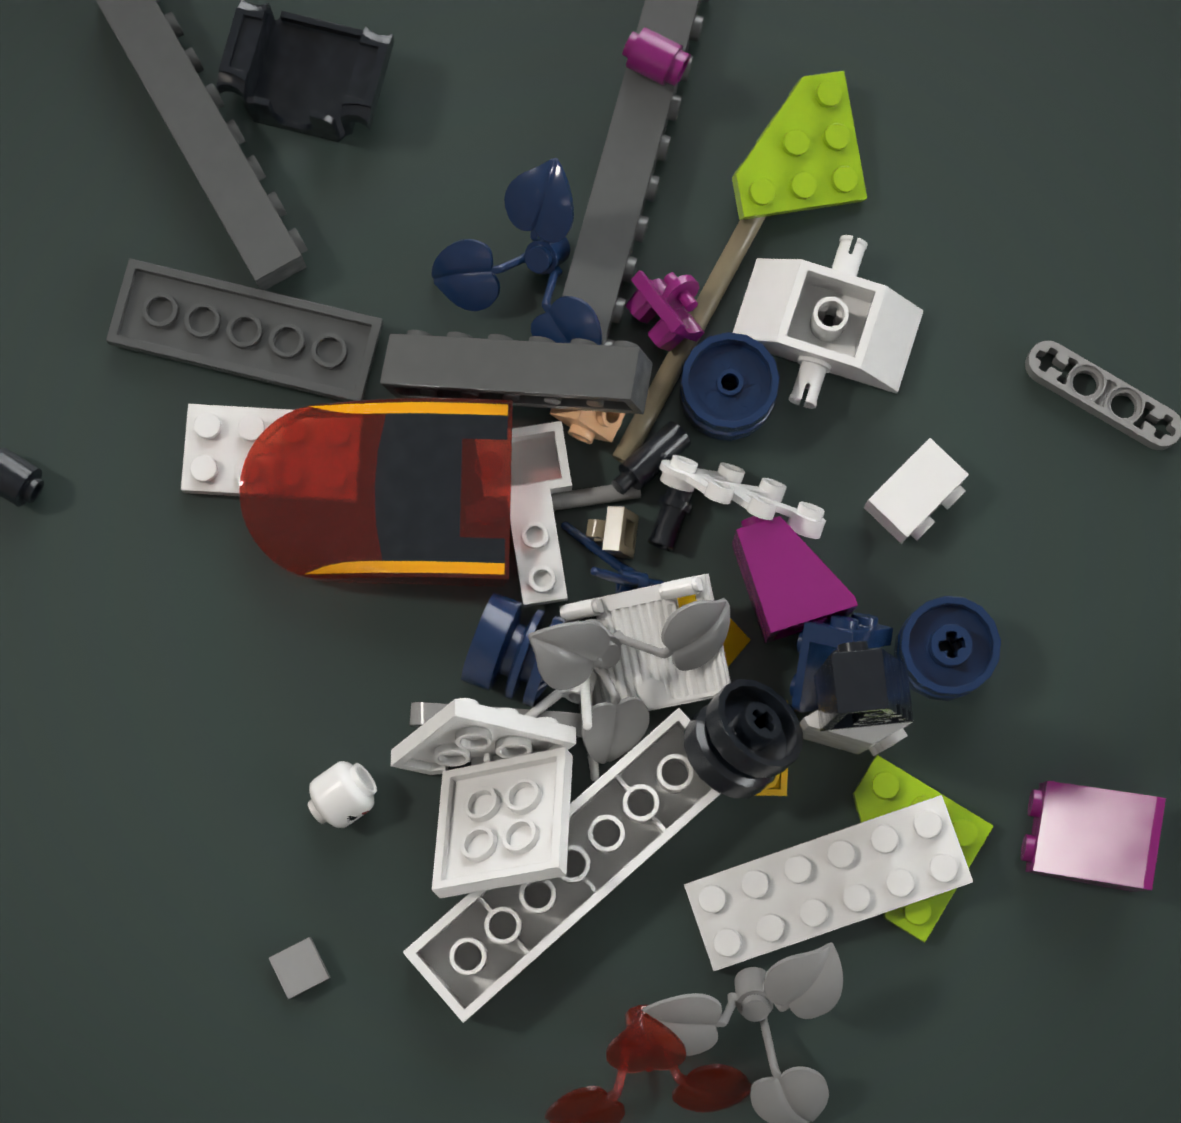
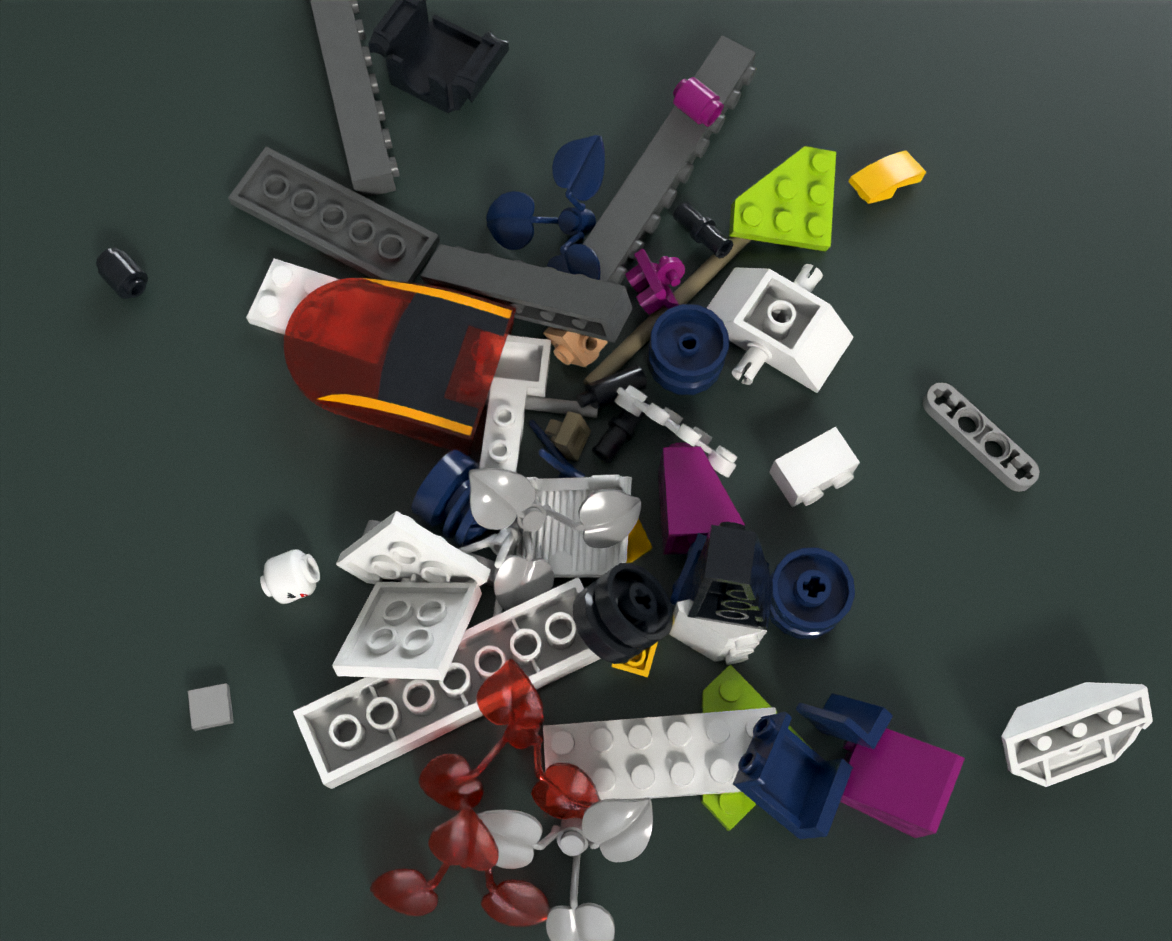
camera: 10 degrees right, 10 degrees down
(657, 882) = (511, 700): none -> clear red plant
(705, 221) = (703, 230): none -> black pin
(914, 82) = (884, 176): none -> yellow slope
(980, 871) = (791, 778): none -> dark blue panel
(1028, 784) = (848, 719): none -> dark blue panel

